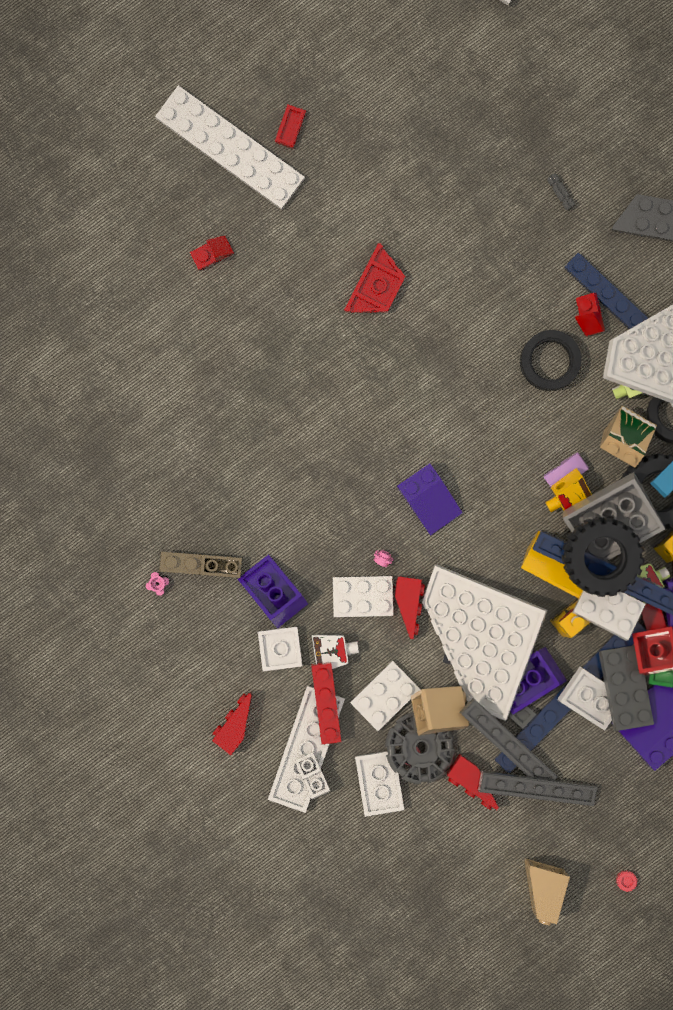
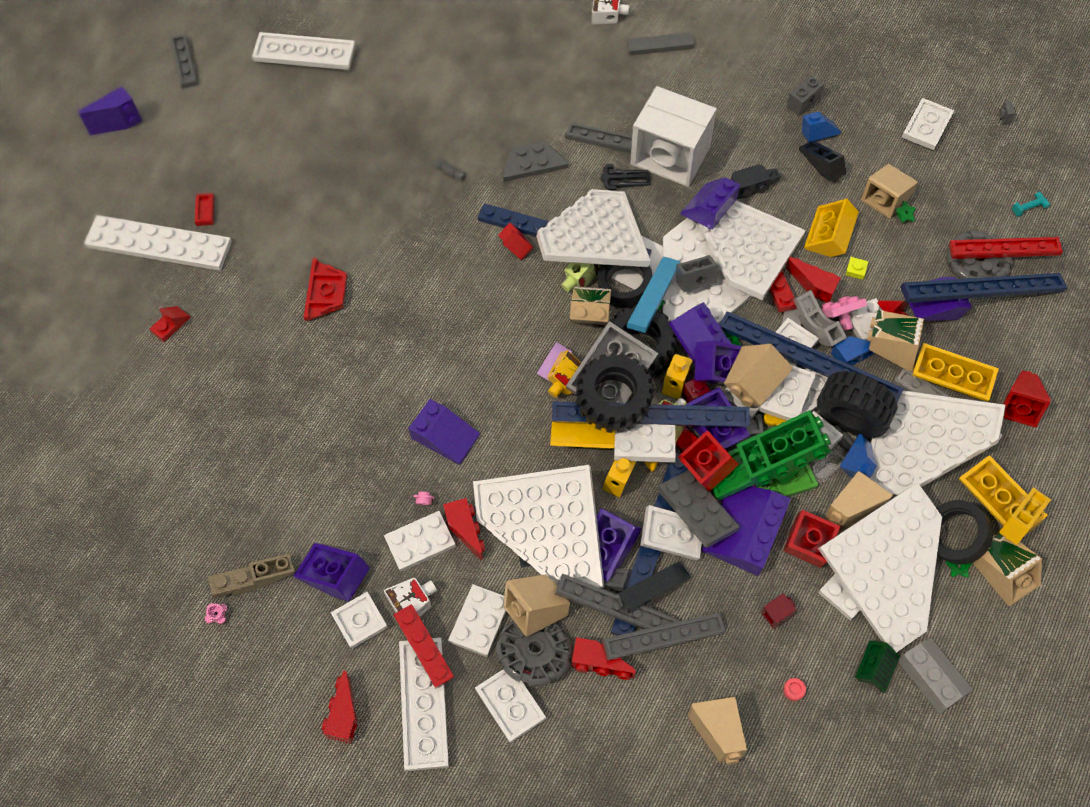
camera: 25 degrees left, 25 degrees down
(312, 775) = (439, 723): white slope -> none
(550, 740) = (653, 587): none -> black tile
(574, 360) = (493, 267): black tyre -> none
(649, 810) = (779, 610): none -> dark red brick

